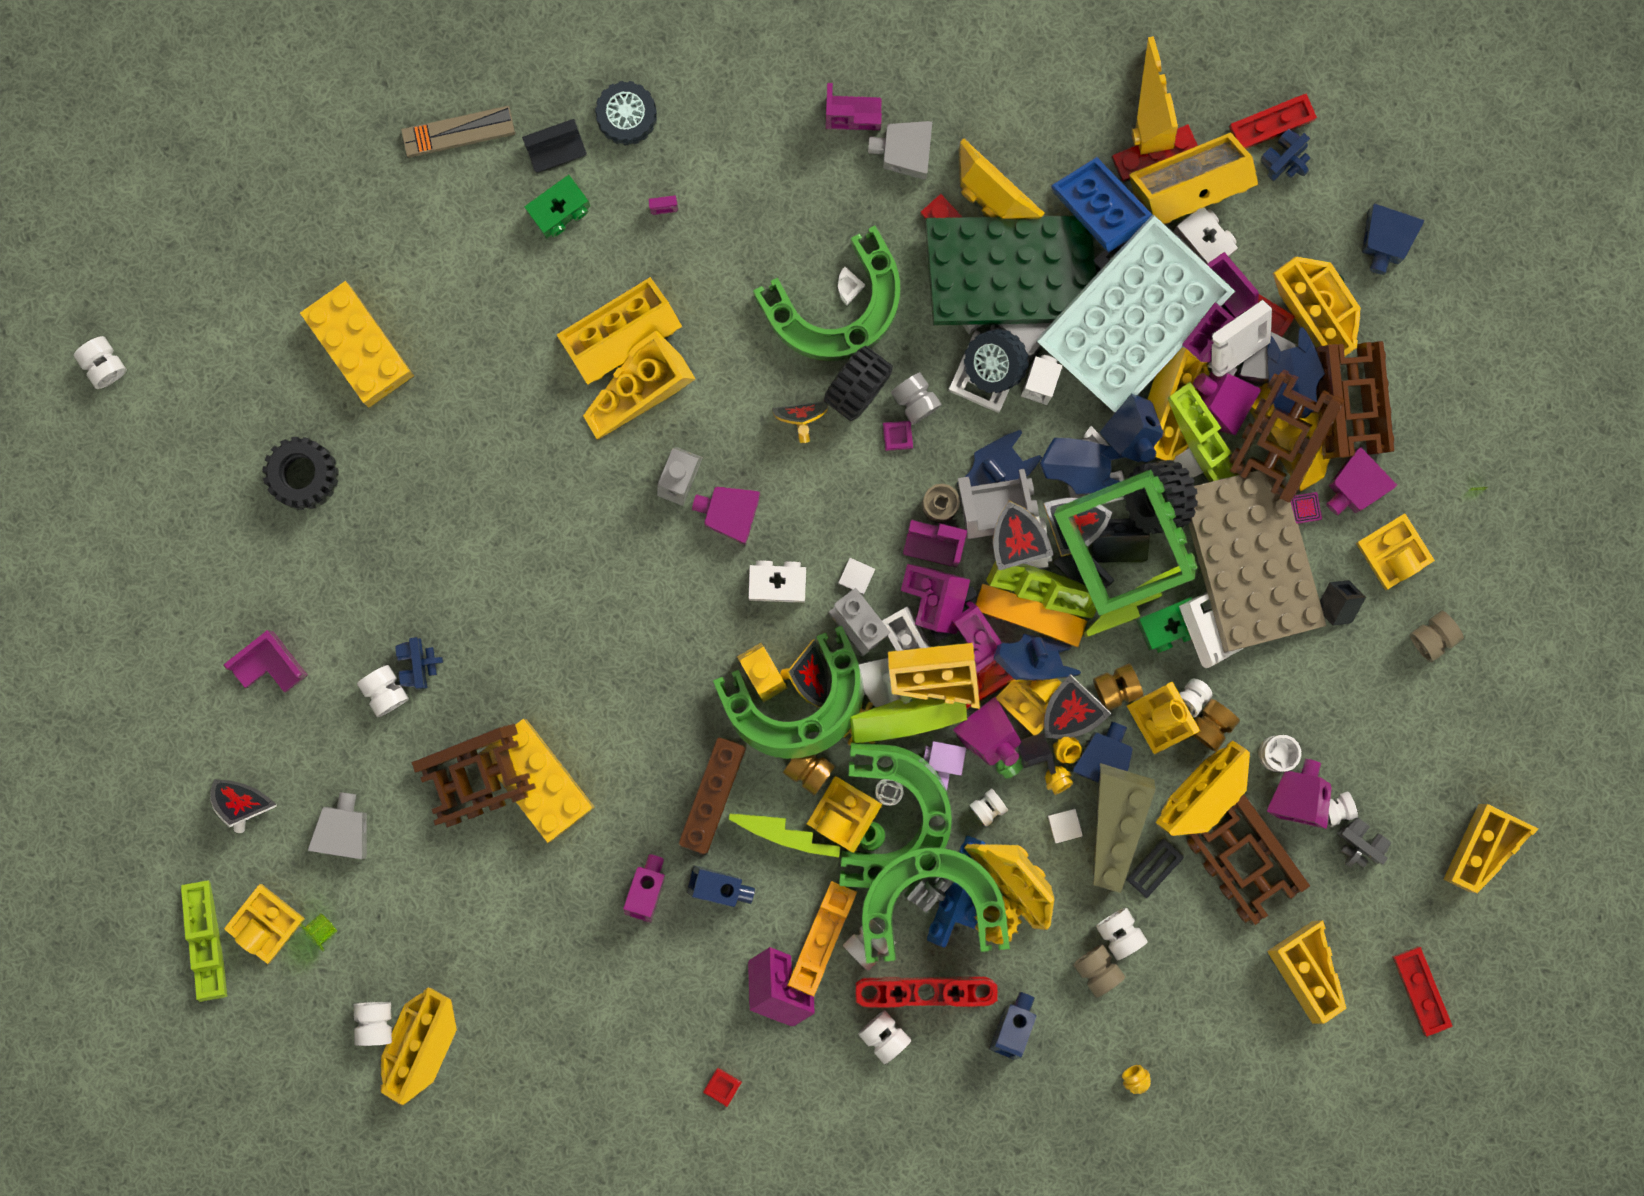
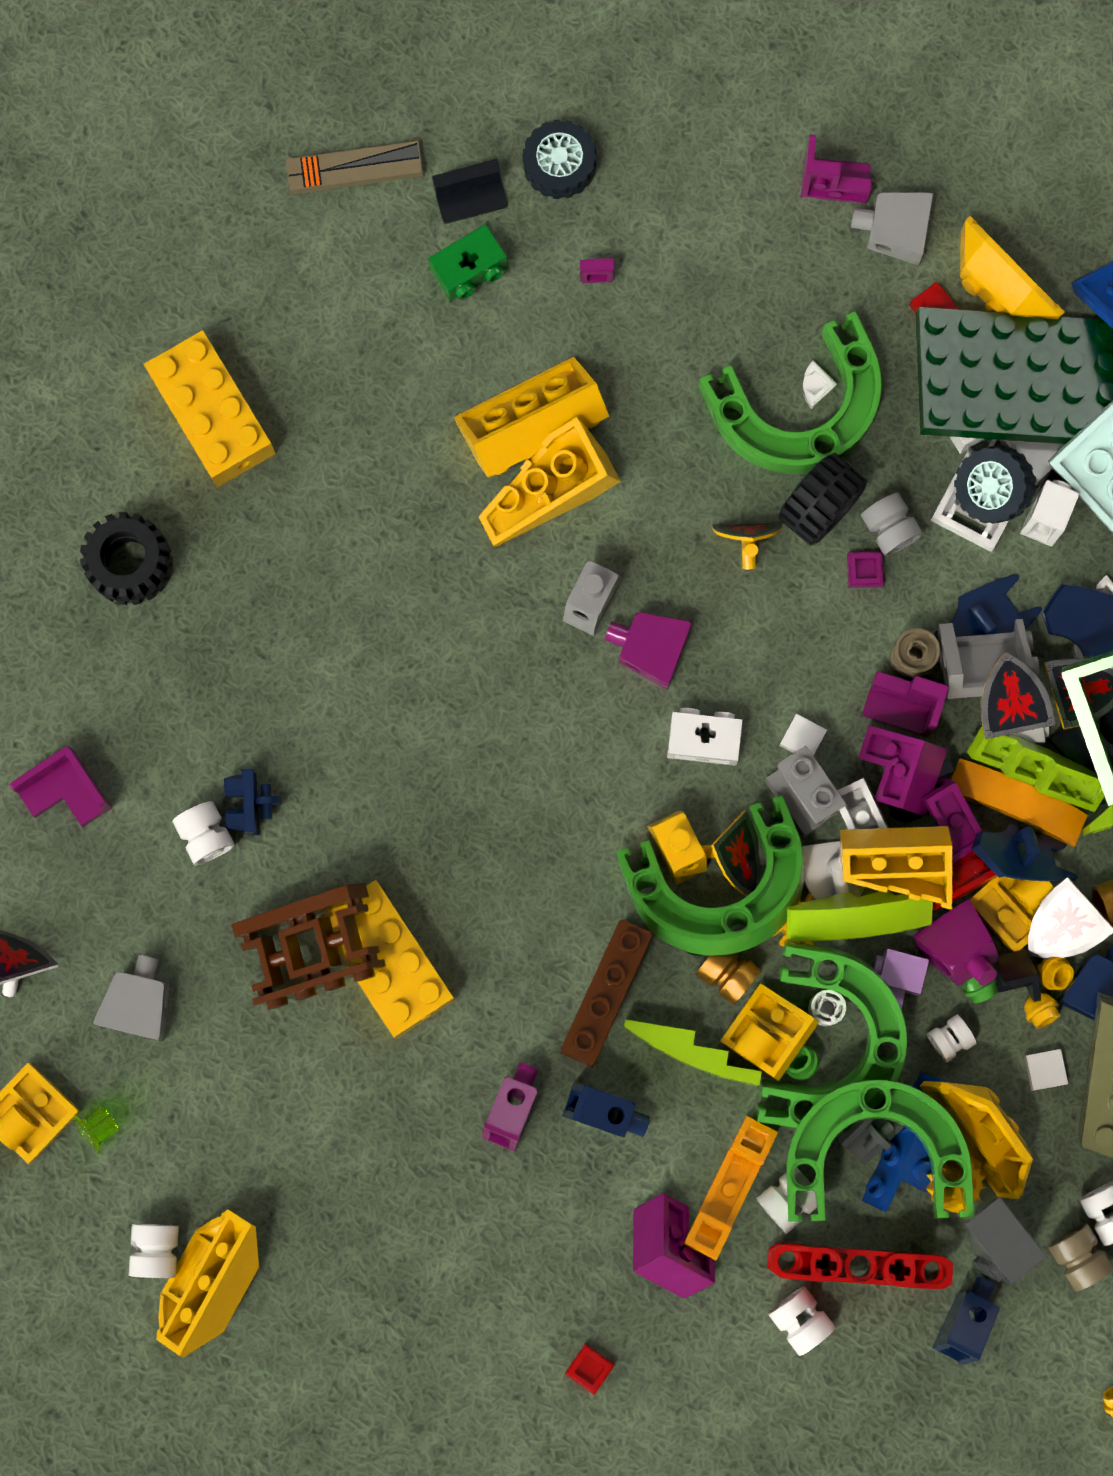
camera: 10 degrees right, 5 degrees down
(1034, 966) = (1002, 1244): none -> dark grey wedge

